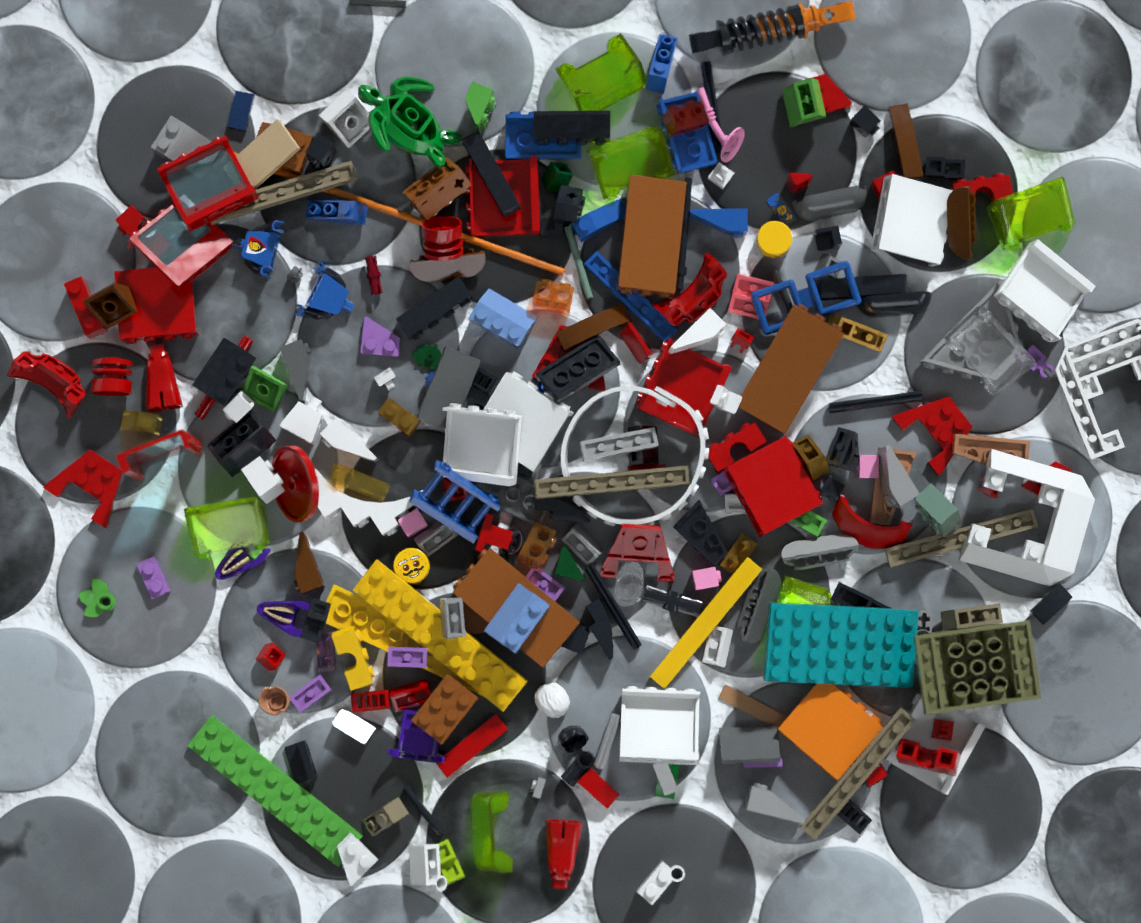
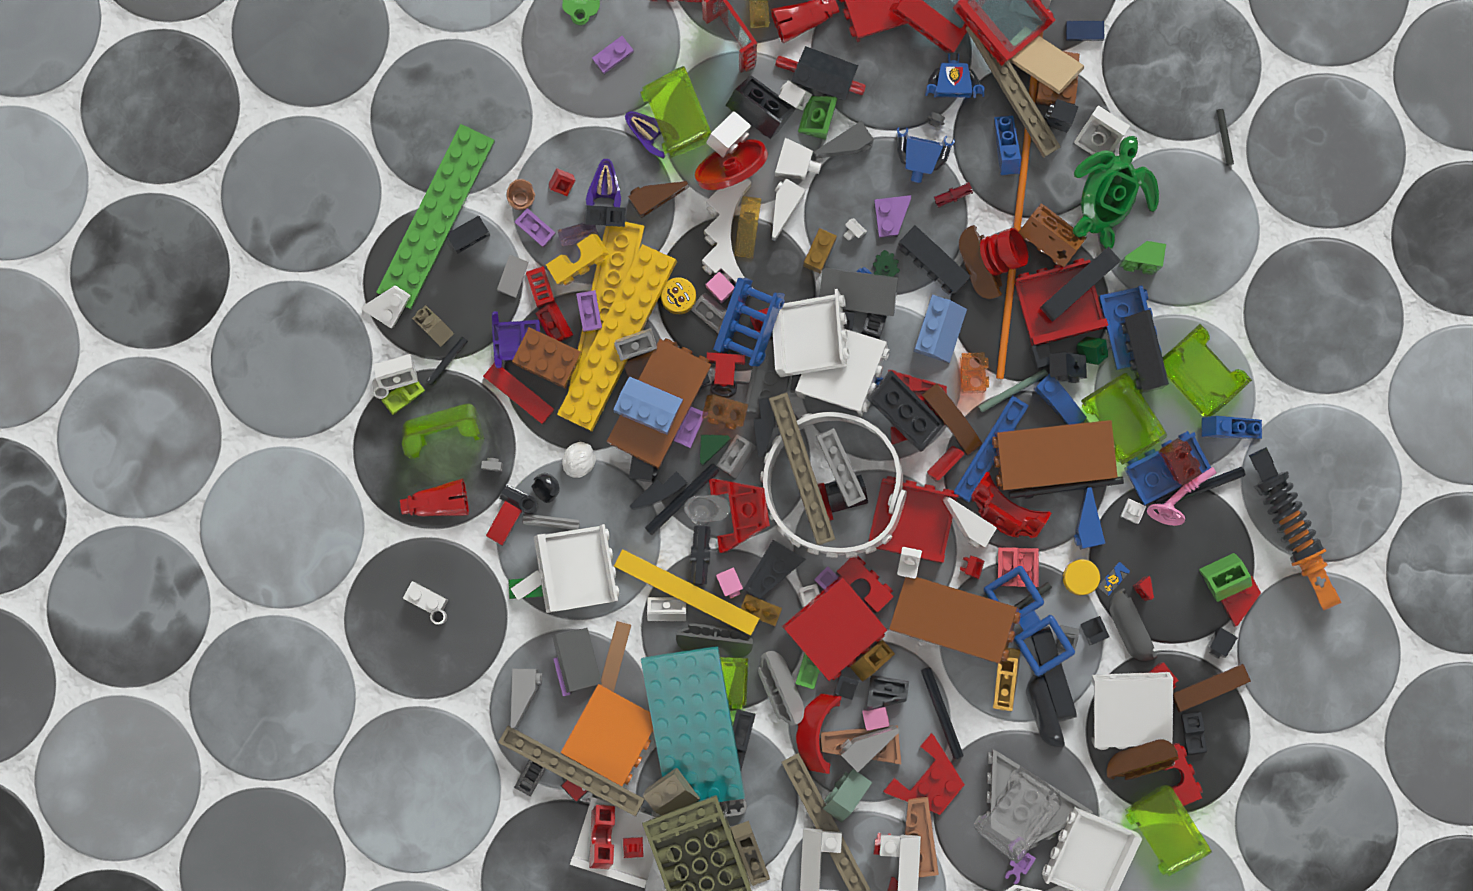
camera: 75 degrees right, 0 degrees up
(900, 681) = (670, 793): none -> dark tan slope

